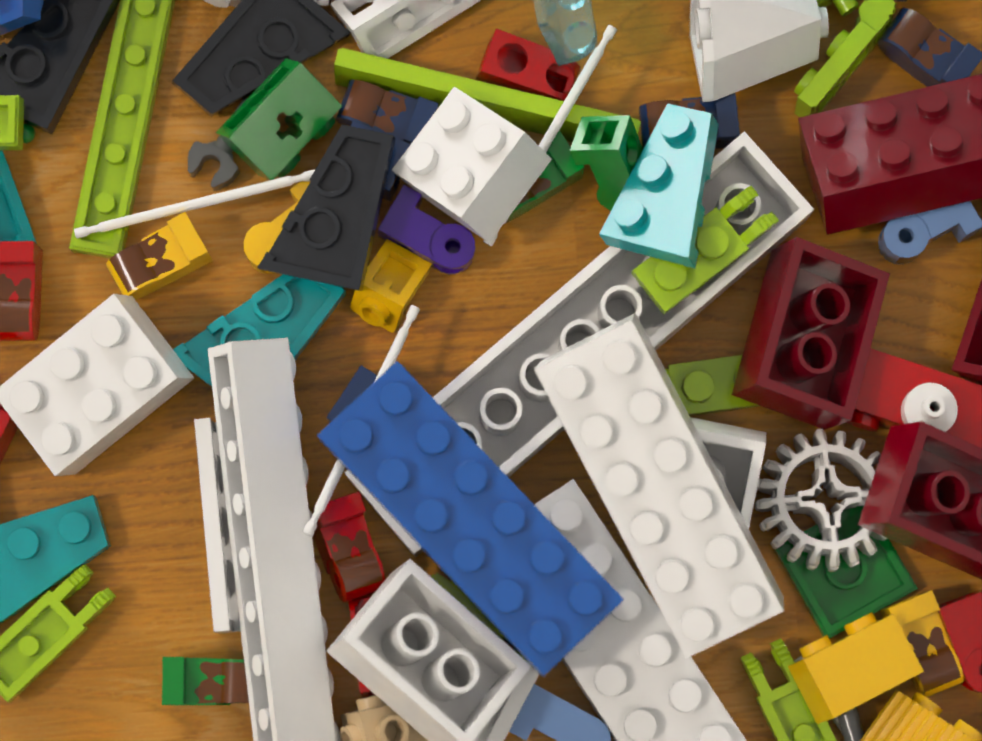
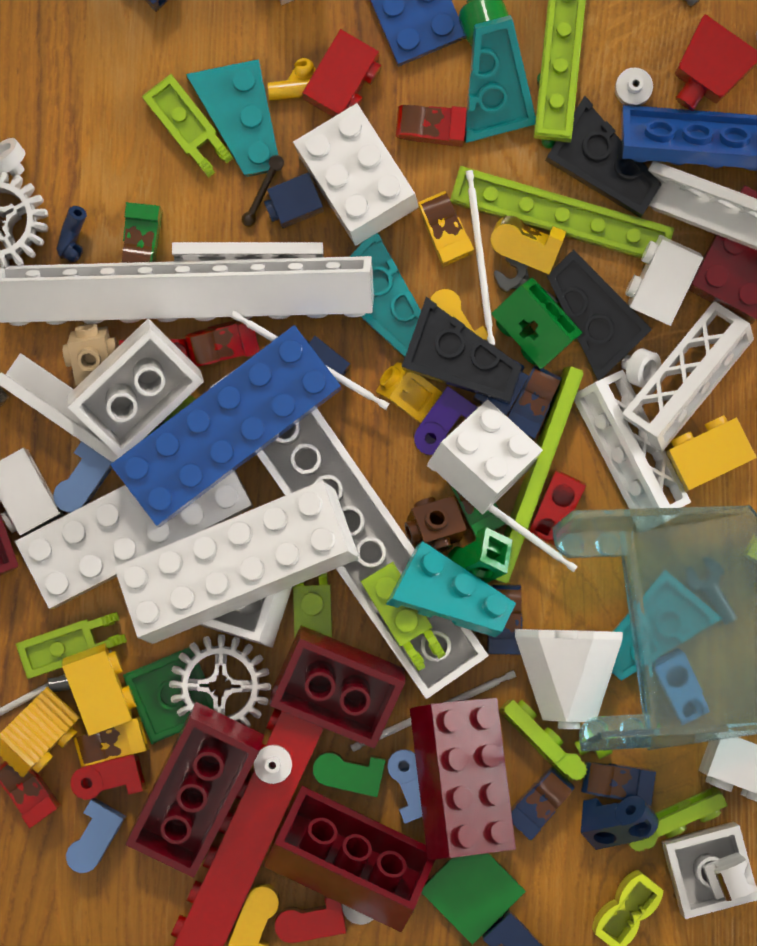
camera: 100 degrees right, 5 degrees up
(87, 501) = (276, 163): none -> dark brown hinge
(138, 470) = (293, 201): none -> dark blue brick
(171, 142) = (526, 244): none -> yellow leg
(569, 227) = (435, 523): none -> reddish brown brick
(805, 184) = (462, 697): none -> white piece
(925, 309) = (347, 775): none -> green leg

